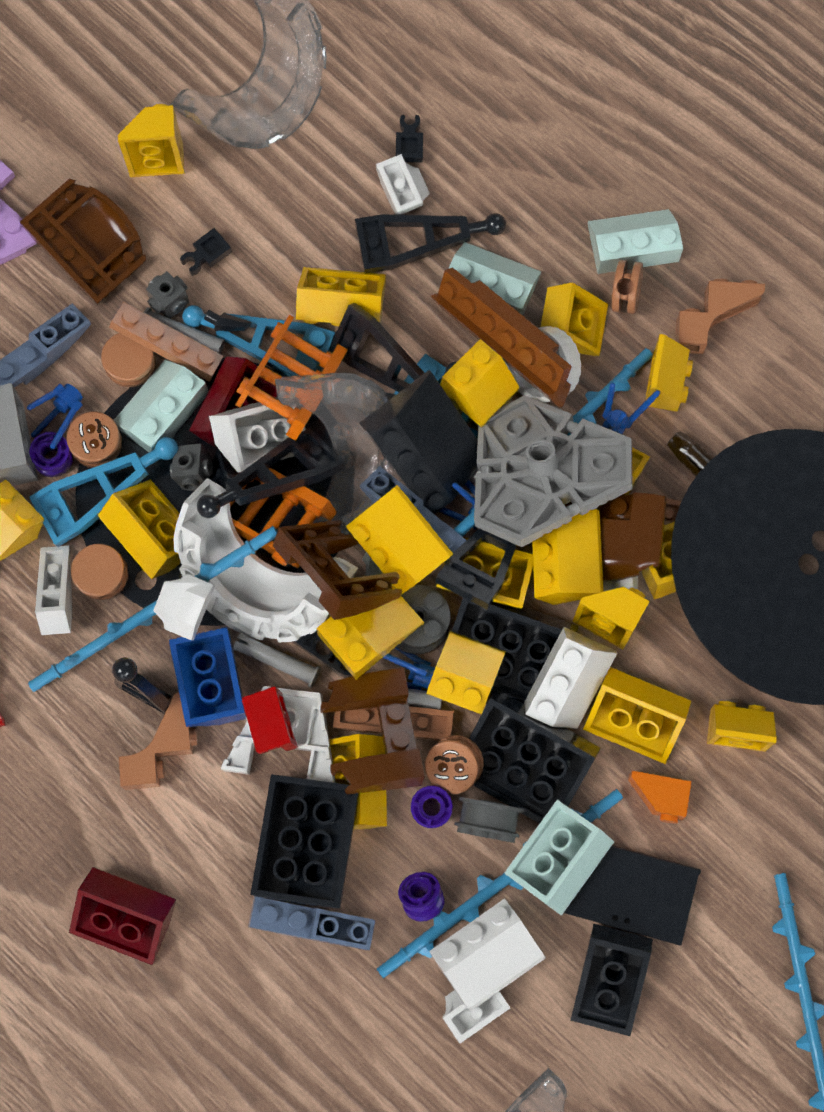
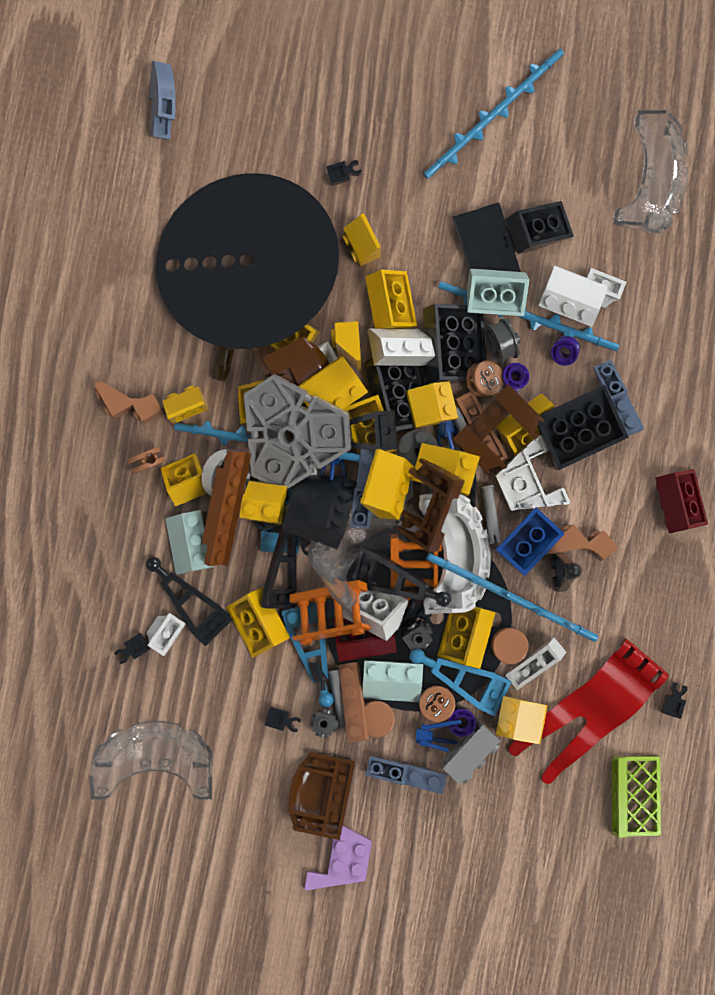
camera: 120 degrees left, 10 degrees up
(153, 143) = (238, 794): yellow slope -> none
(183, 604) = (502, 578): white slope -> none
(269, 721) = (531, 490): red panel -> none
(618, 419) = (231, 416): blue plant -> none
(640, 237) = (110, 477): light aqua slope -> none
(662, 795) = (425, 259): orange slope -> none

